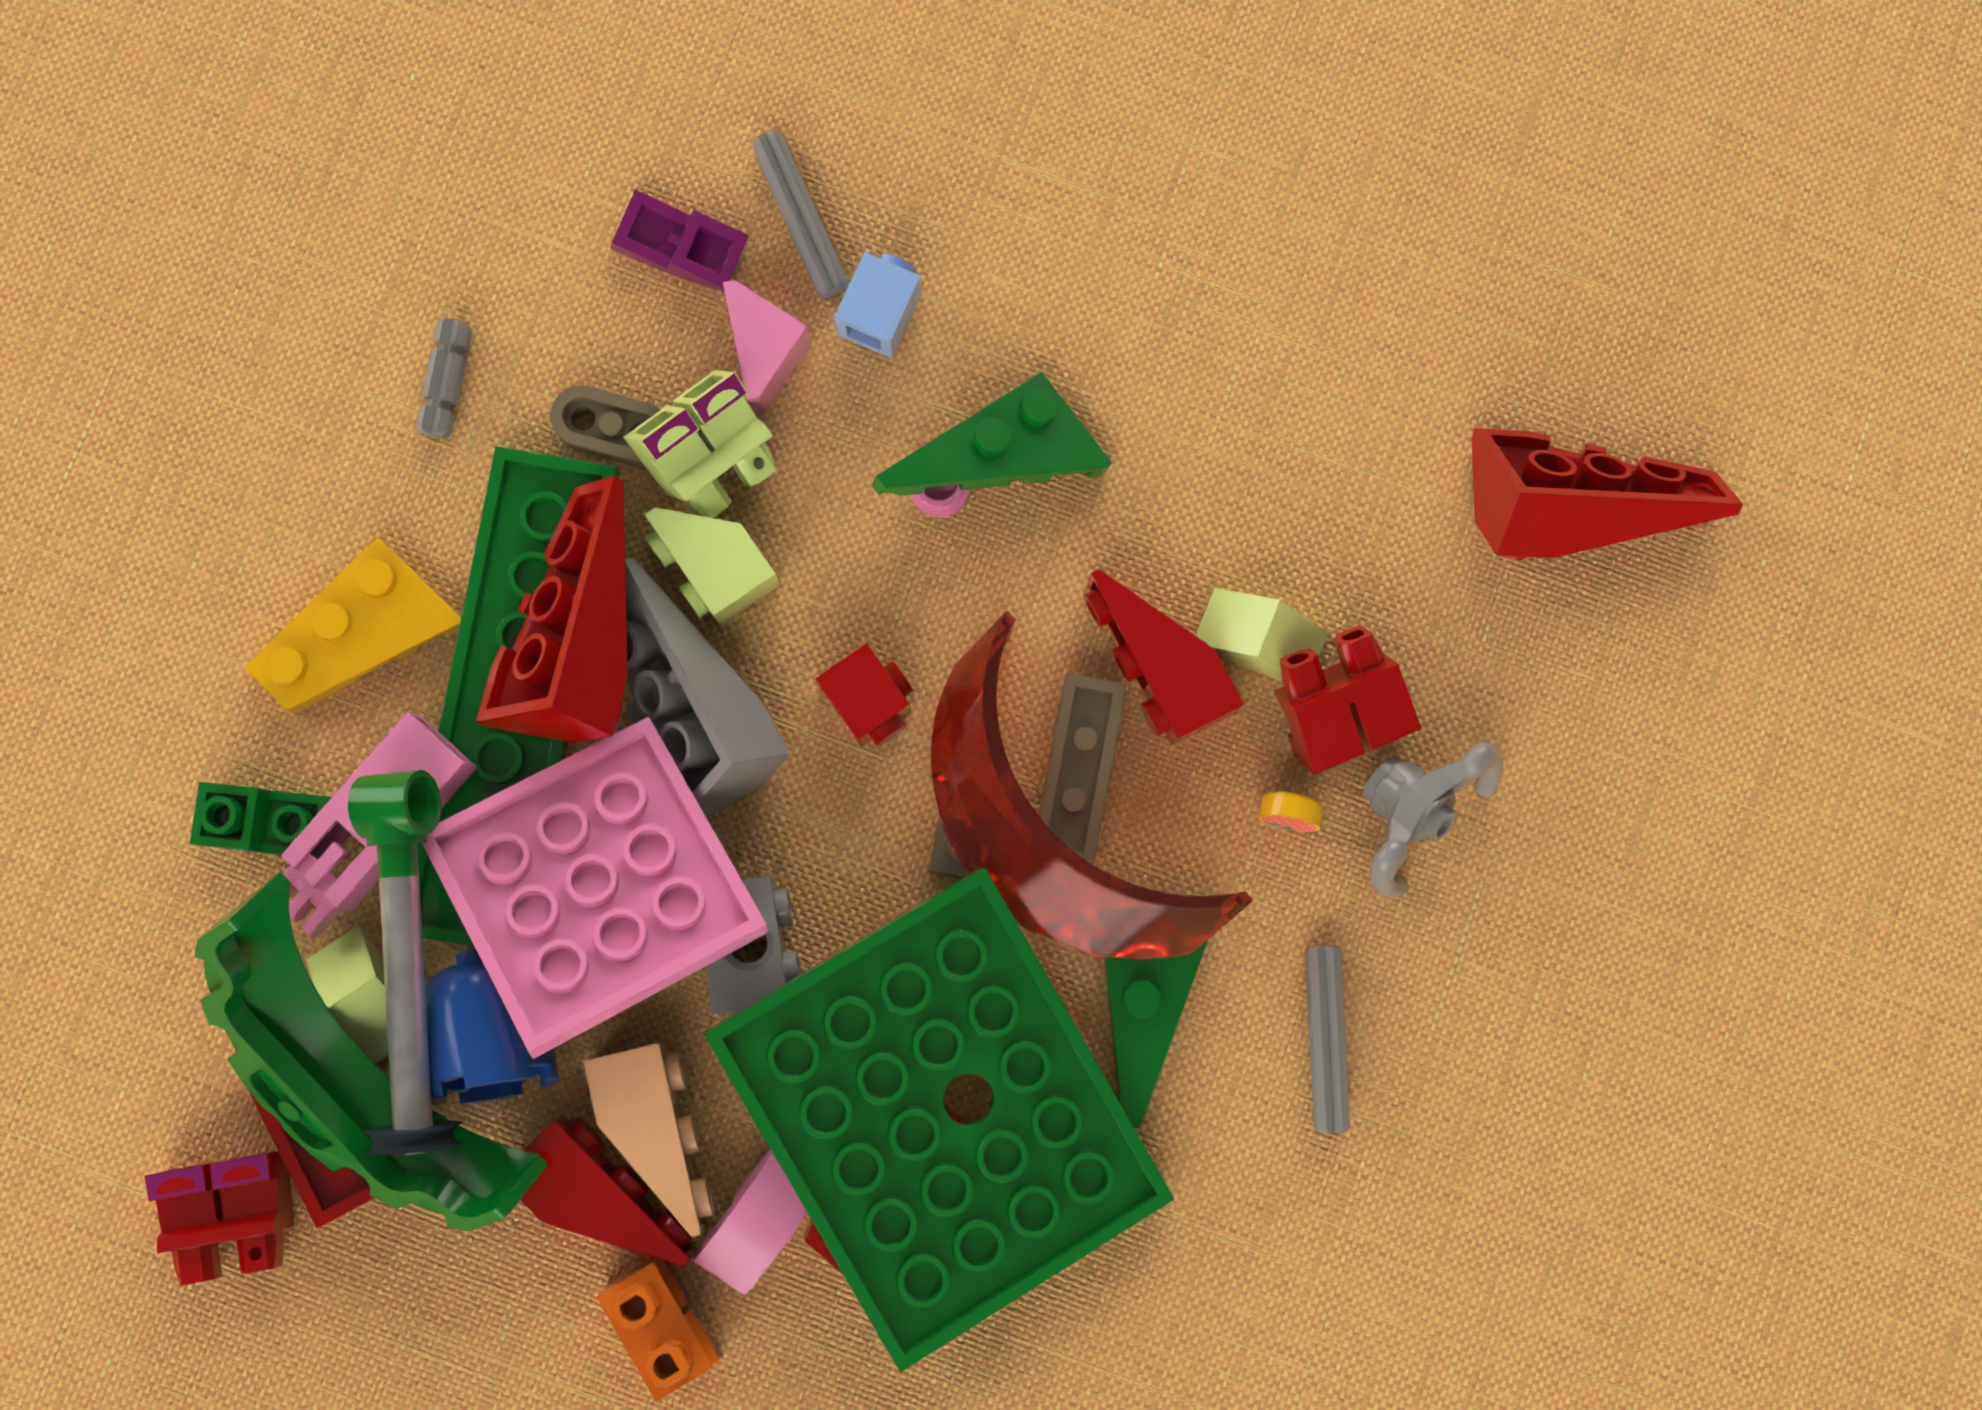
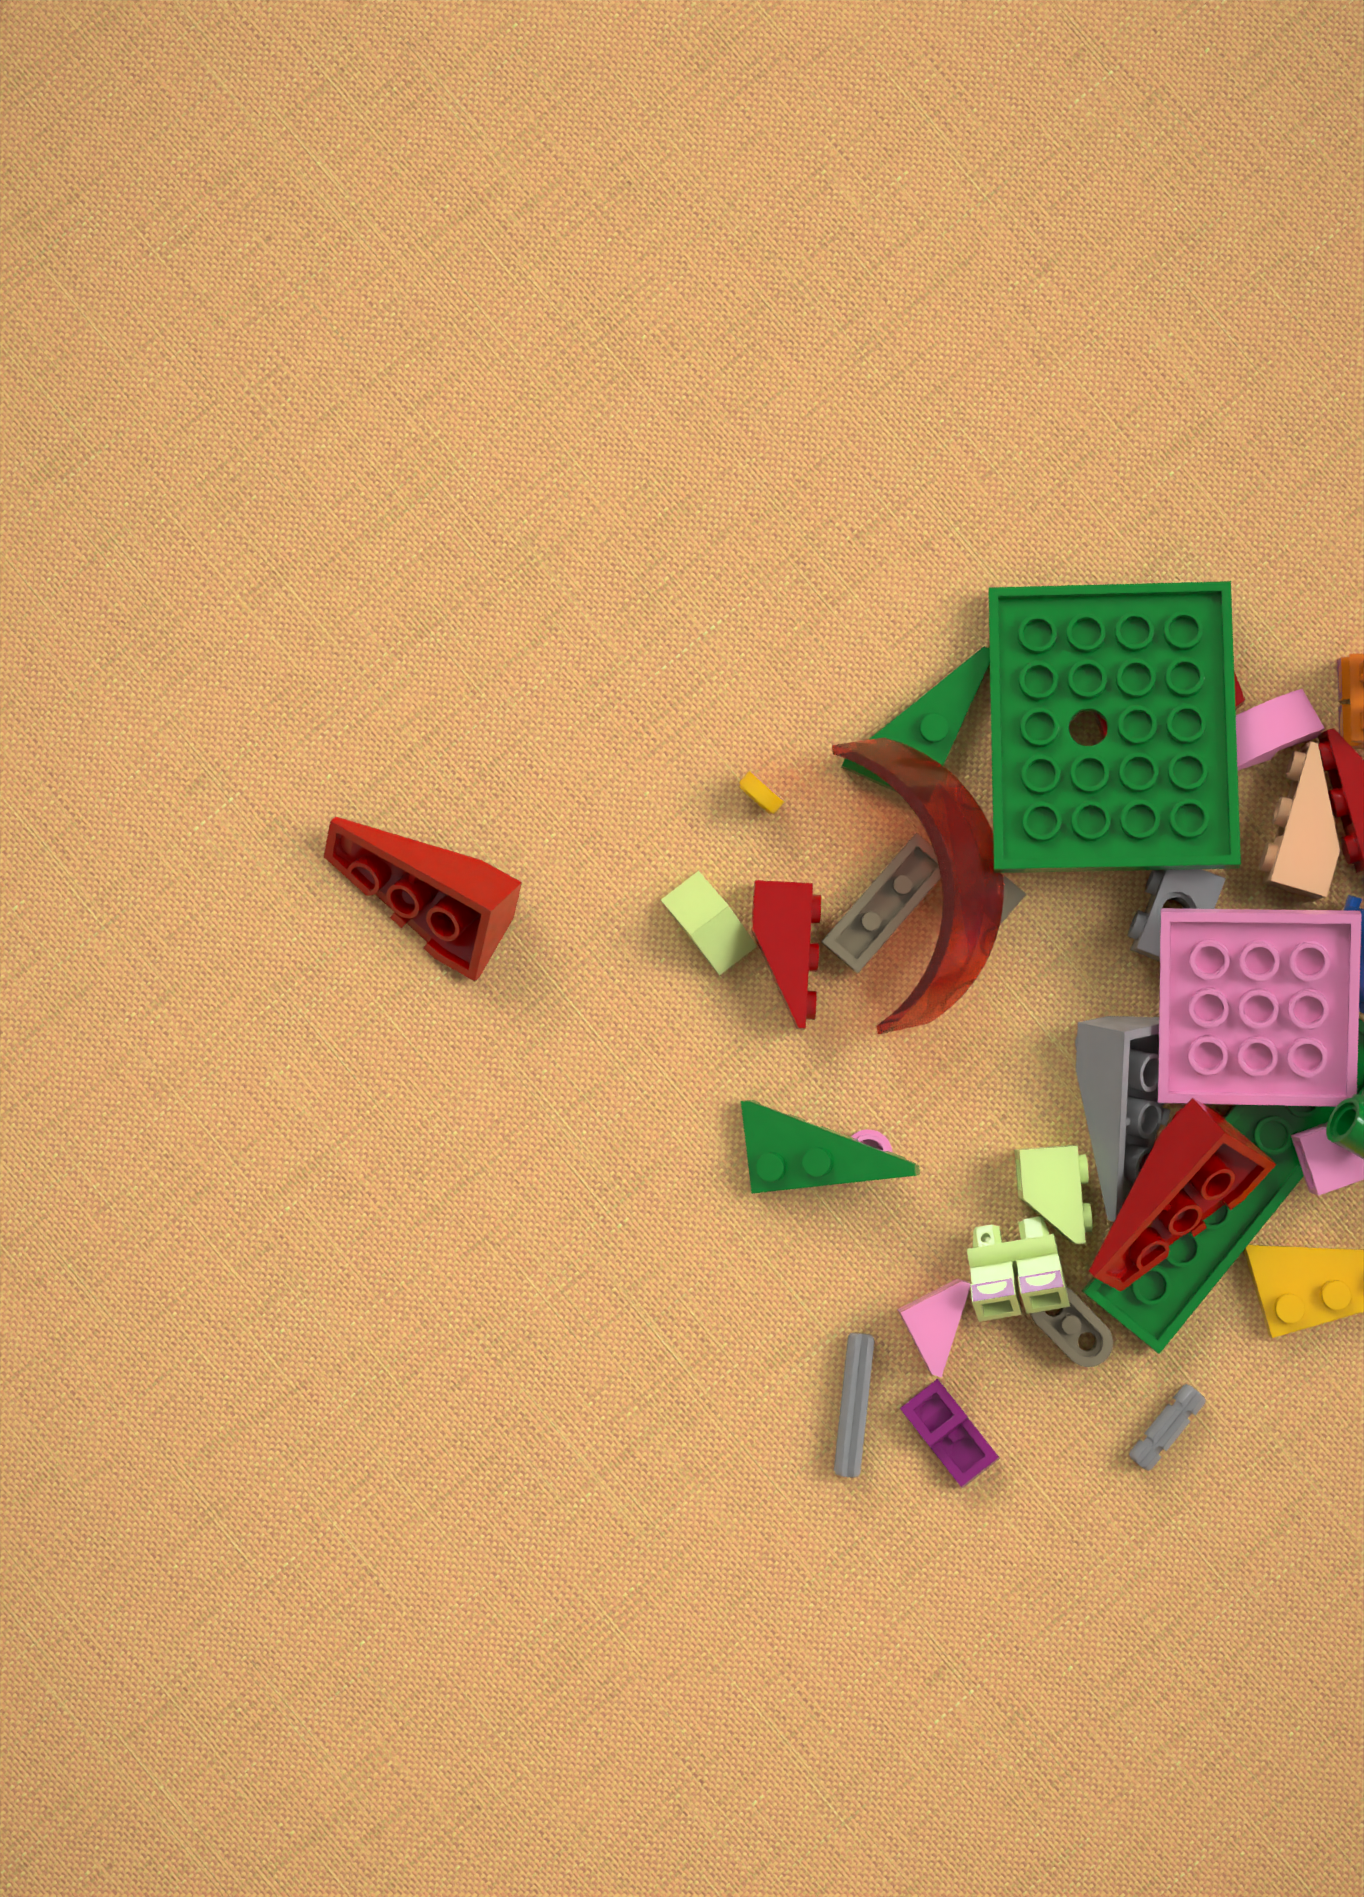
camera: 145 degrees left, 5 degrees up
(867, 696) = (1001, 1033): red brick -> none
(879, 303) = (838, 1303): light blue brick -> none
(1327, 1039) = (824, 631): light grey axle -> none
(1344, 704) = (699, 855): red hips -> none
(1422, 806) = (675, 744): light grey piece -> none

